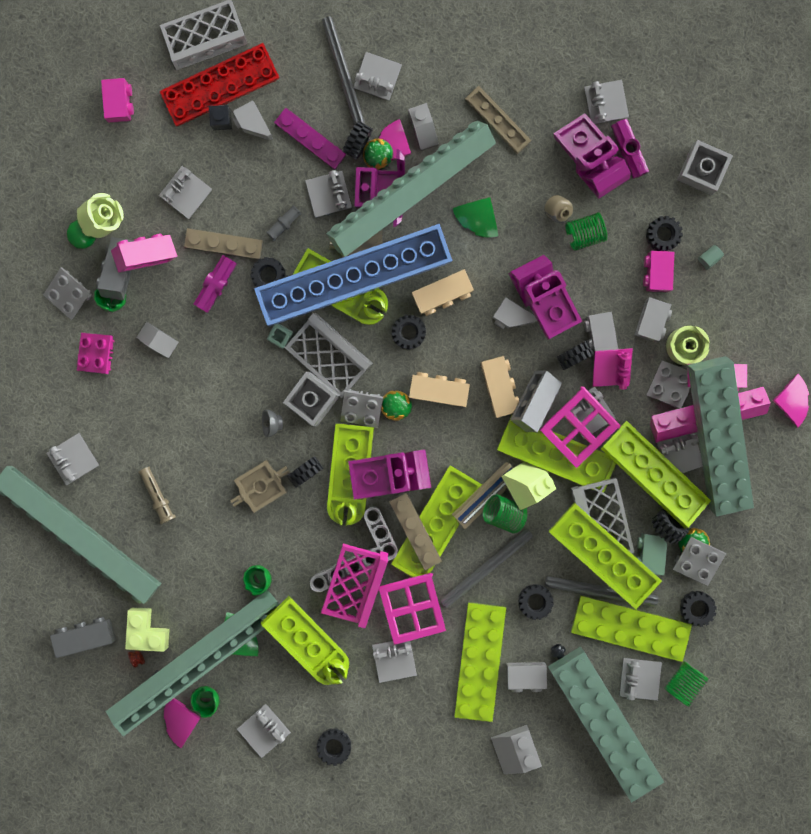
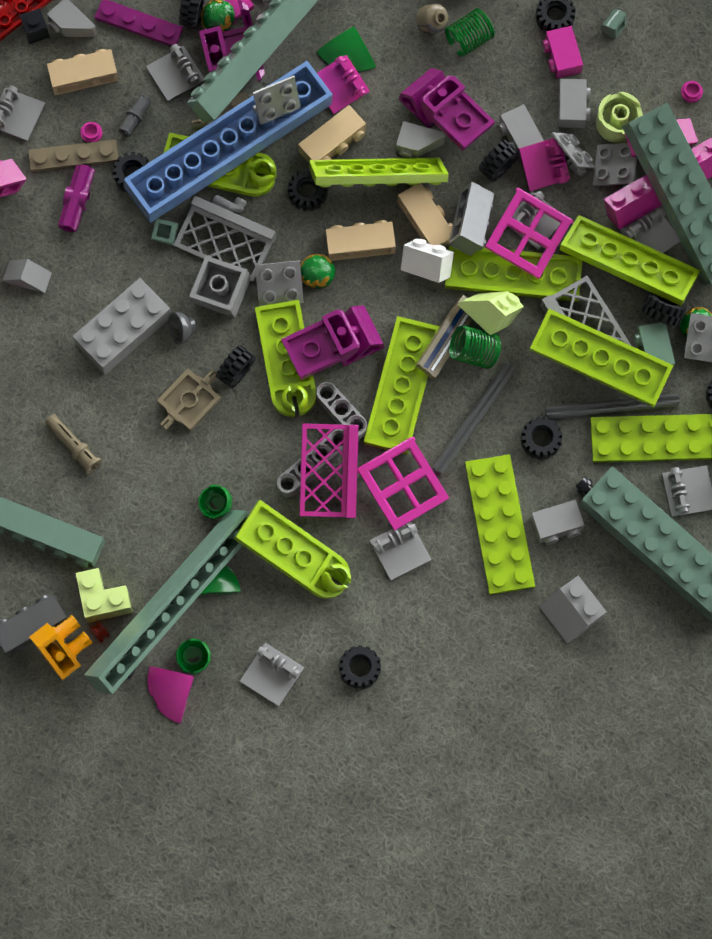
camera: 20 degrees left, 15 degrees down
(96, 669) = (57, 653): none -> light orange brick
(222, 408) = (122, 326): none -> light grey brick
(243, 227) = (91, 132): none -> dark pink plate
(250, 170) = (82, 71): none -> tan brick
(339, 327) = (237, 206): none -> light grey arm
(401, 258) = (276, 100): none -> light grey hinge
(415, 531) = (380, 396): dark tan plate -> none
(464, 244) = (343, 83): none -> dark pink hinge
(470, 337) = (378, 171): none -> lime plate
(488, 427) = (427, 260): none -> white brick
(641, 370) = (579, 158): none -> light grey hinge
(756, 337) = (691, 91): none -> dark pink plate

